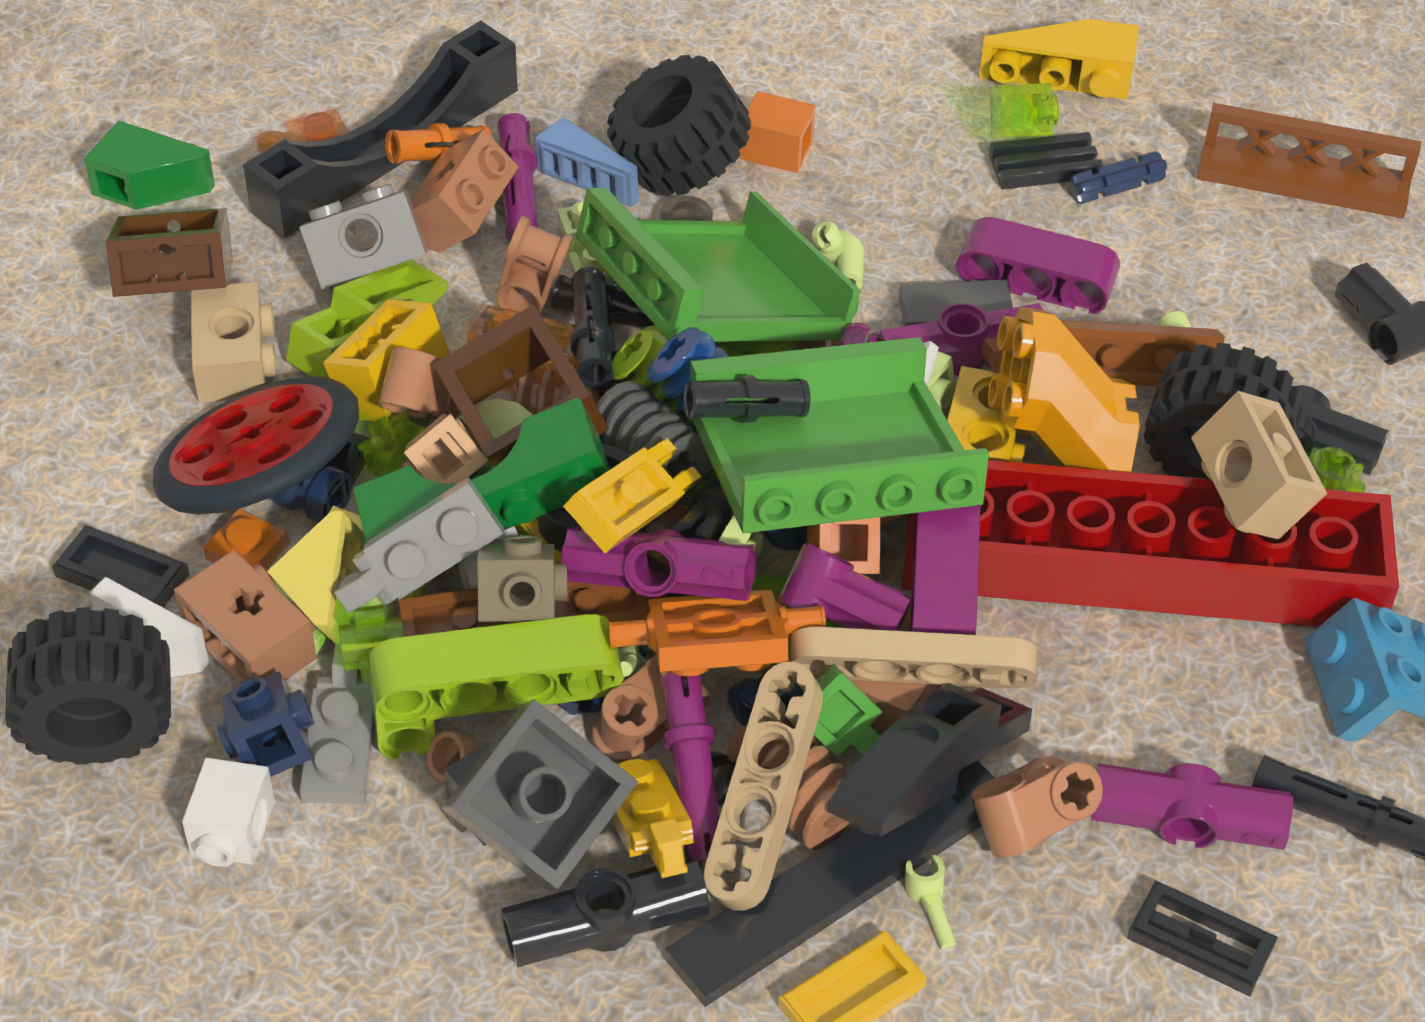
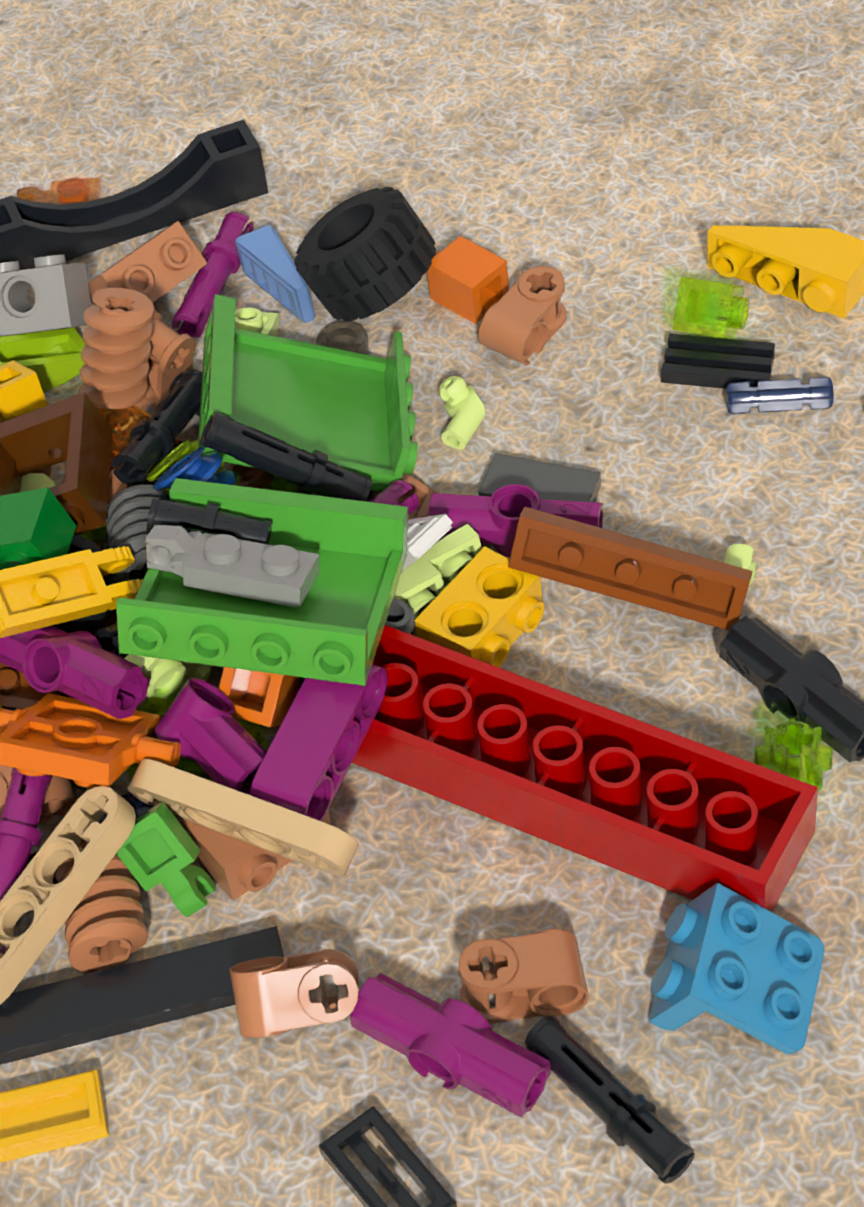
camera: 30 degrees right, 0 degrees up
(410, 144) = (124, 222): orange pin -> none
(517, 259) = (116, 348): none -> nougat piece
(774, 329) = (307, 470): none -> black pin
(799, 427) = (233, 565): none -> light grey hinge
(854, 152) = (525, 315): none -> nougat piece
(921, 756) = (203, 911): black slope -> none
(928, 892) = (162, 1048): yellowish green hand -> none
(1040, 263) = (641, 464): magenta beam -> none
(1062, 395) = (538, 599): light orange brick -> none
(1197, 388) = (700, 664): black tyre -> none
(1221, 728) = (526, 973): none -> nougat piece
(1258, 466) = (669, 719): tan brick -> none

